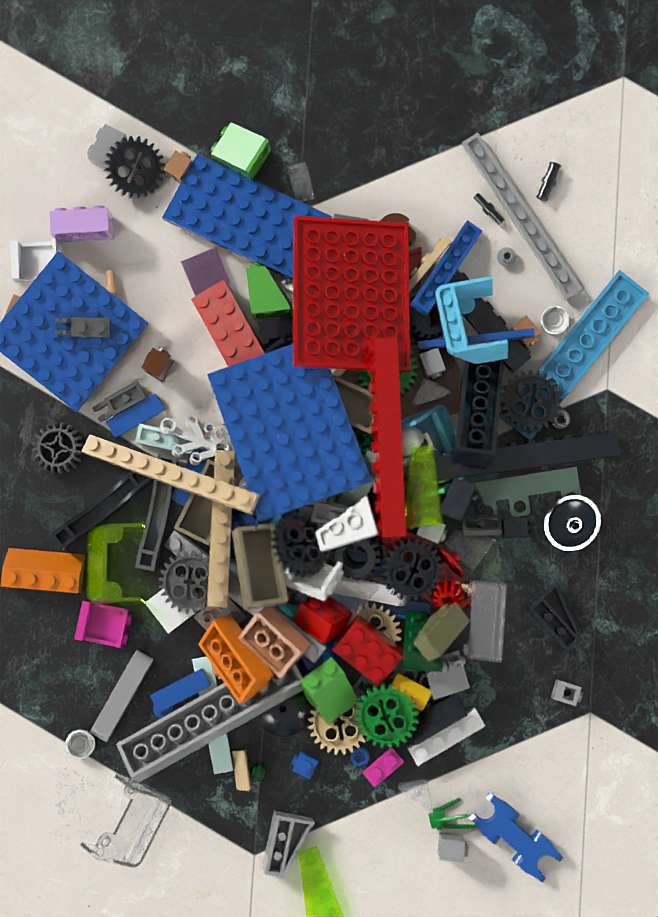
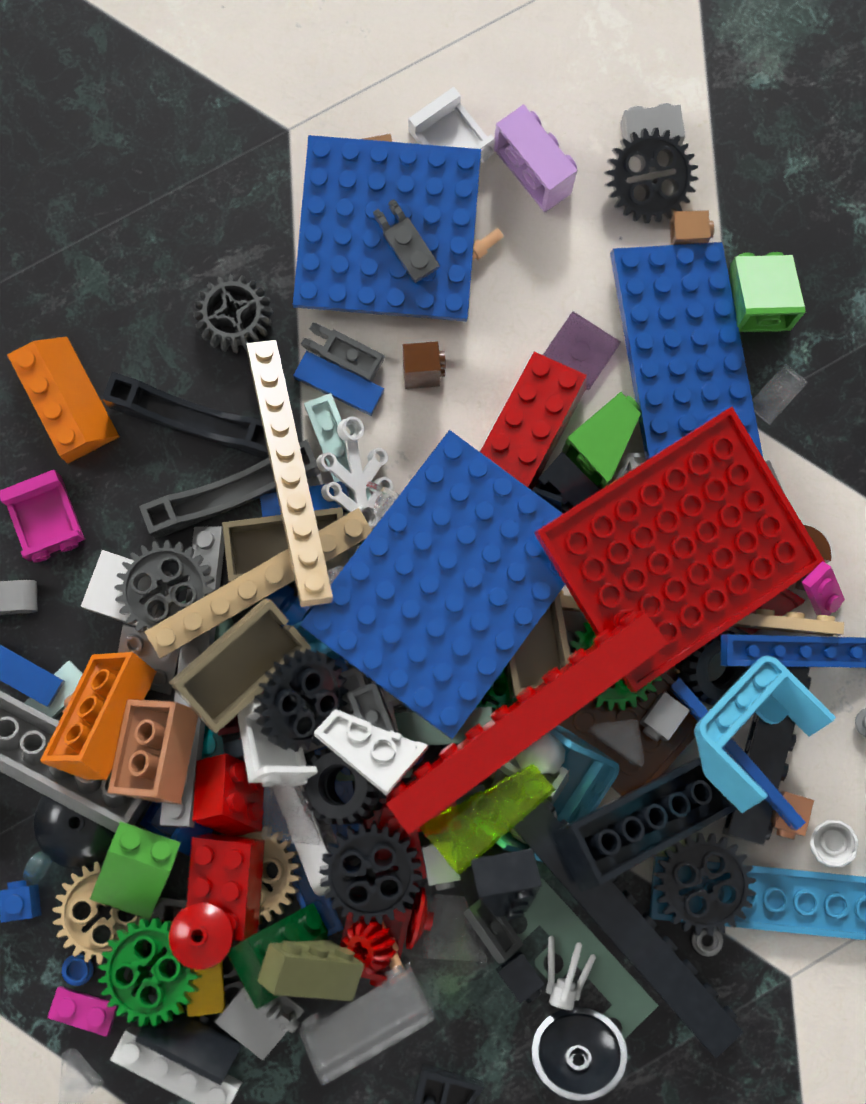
camera: 45 degrees right, 5 degrees down
(97, 588) = (84, 478): clear neon green windscreen -> none
(292, 744) = (37, 867): none -> clear light blue tile
(393, 669) = (216, 940): none -> red dish
(422, 233) = (823, 590): none -> dark pink plate
(537, 510) = (564, 992): none -> white plant

